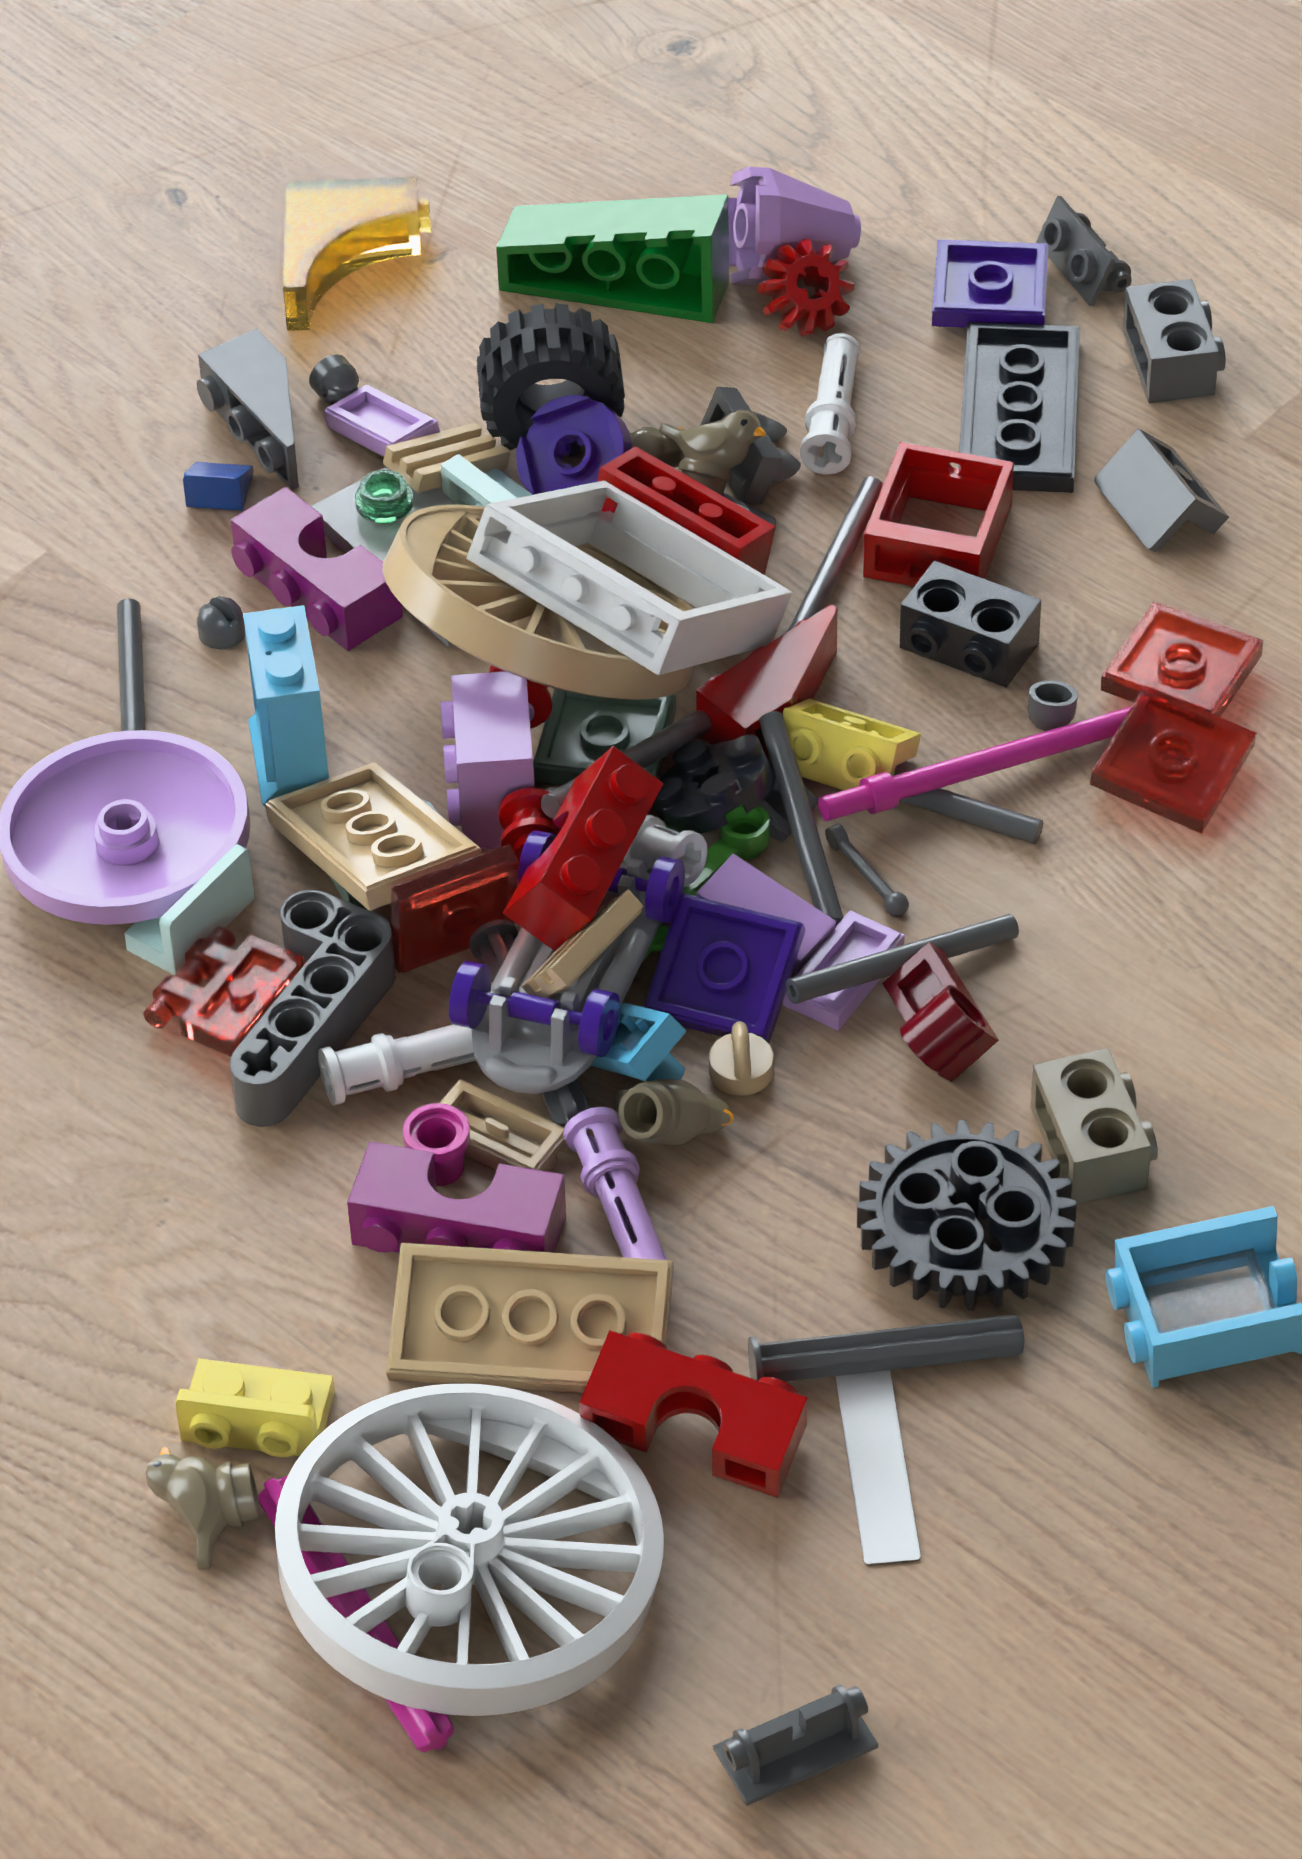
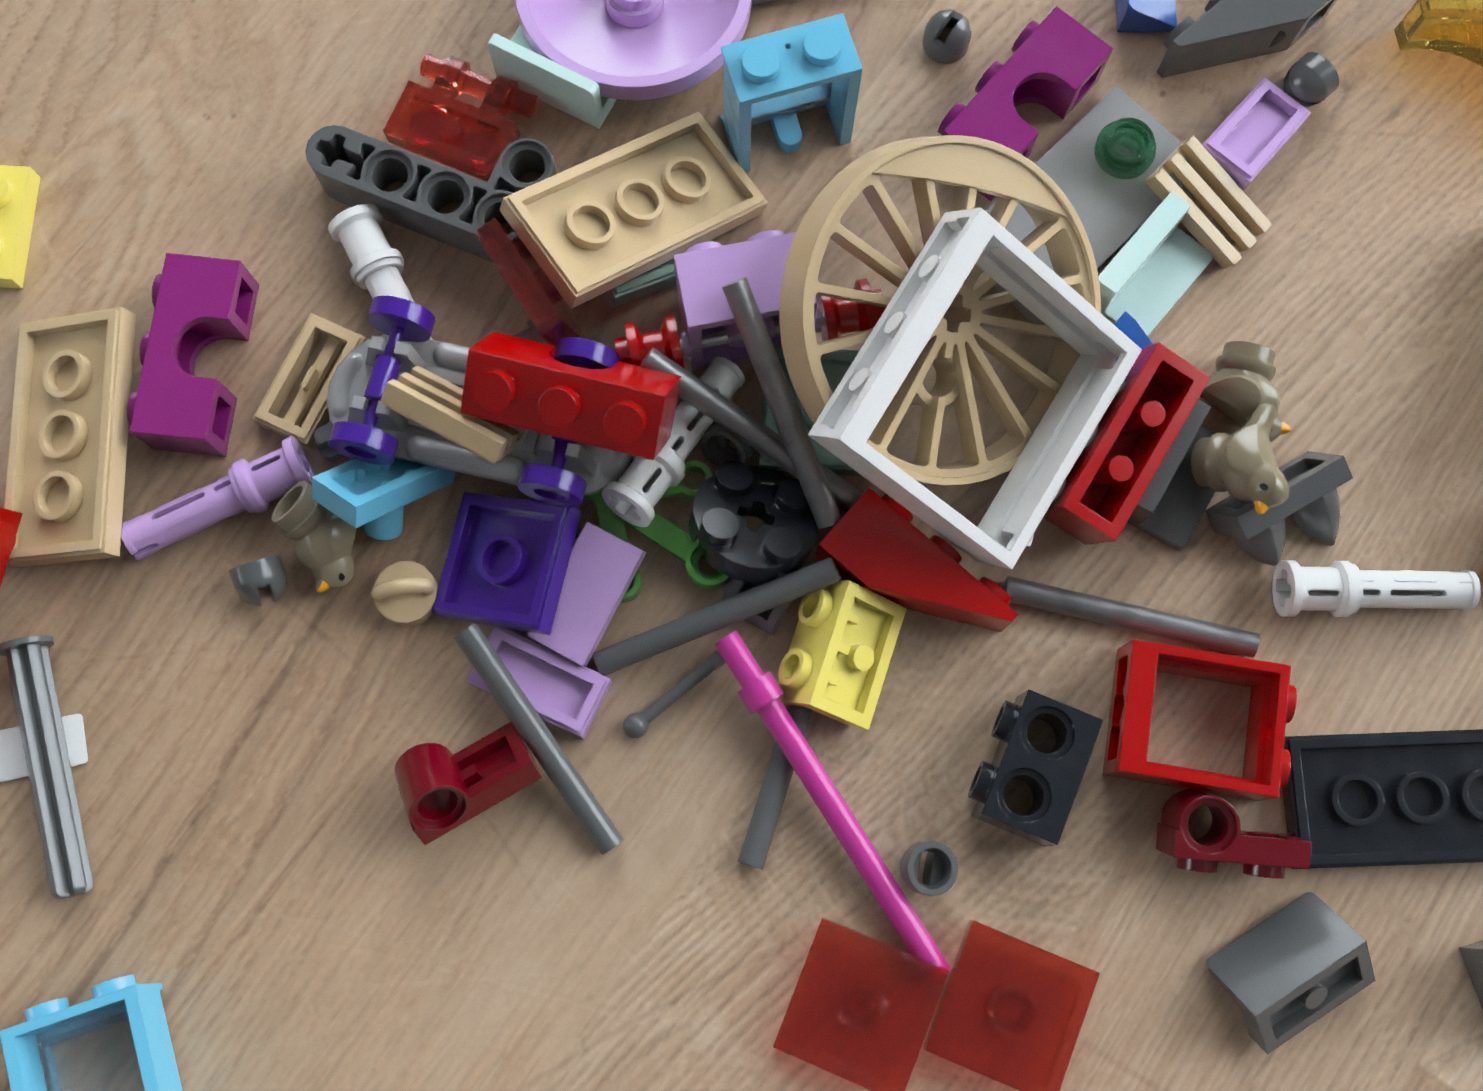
camera: 80 degrees right, 30 degrees up
(442, 1131) = (261, 310): dark pink piece -> none
(541, 348) = (1313, 278): black tyre -> none
(549, 440) = (1239, 299): dark purple plate -> none
(612, 717) = (781, 402): none -> flat silver bar
(711, 1170) = (259, 575): none -> dark grey hinge
(966, 1215) = (177, 781): black gear -> none
(1035, 518) = (1259, 852): none -> dark red plate
(1093, 1125) = (319, 937): dark tan brick -> none

